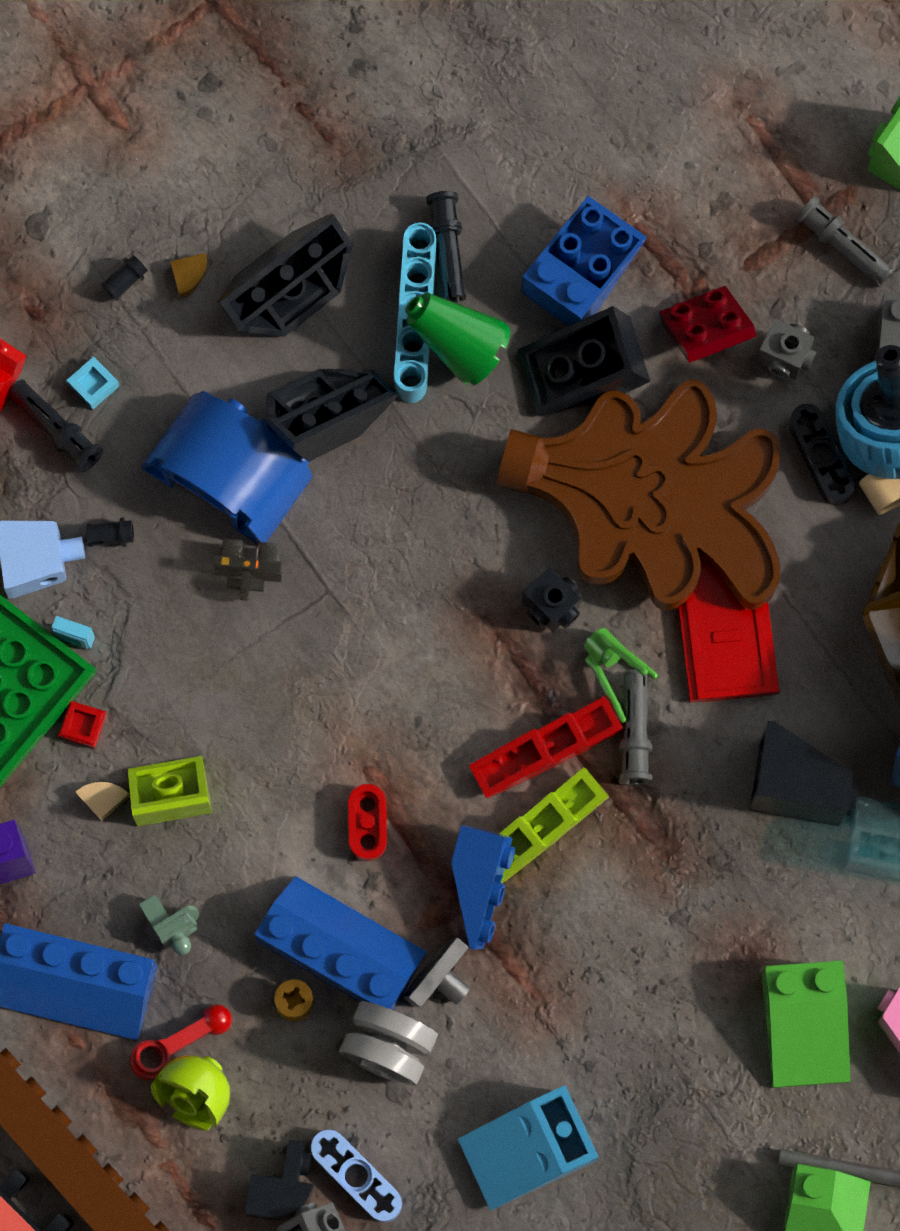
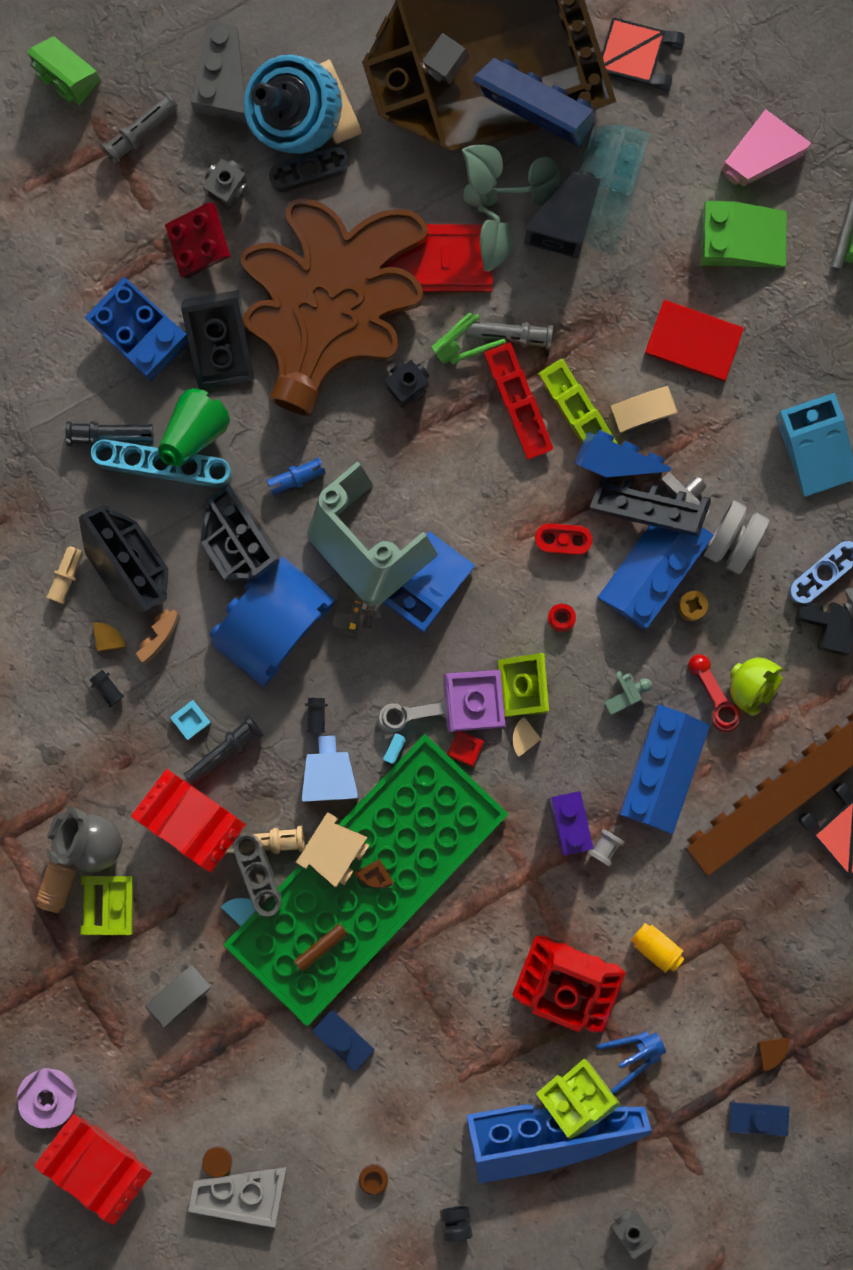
camera: 85 degrees left, 10 degrees up
(134, 698) = (408, 714): none -> light grey piece
(143, 727) = (474, 700): none -> medium lavender plate
(201, 336) = (164, 627): none -> medium nougat slope
(259, 820) = (568, 611): none -> red plate
(262, 214) = (65, 575): none -> tan axle
(291, 649) = (431, 588): none -> blue slope
(294, 569) = (370, 573): none -> sand green windscreen
(415, 477) = (295, 476): none -> blue pin
(416, 926) = (650, 507): none -> black hinge
(553, 912) = (644, 409): none -> tan slope
(655, 972) = (694, 340): none -> red tile
(832, 651) = (483, 167): none -> sand green plant

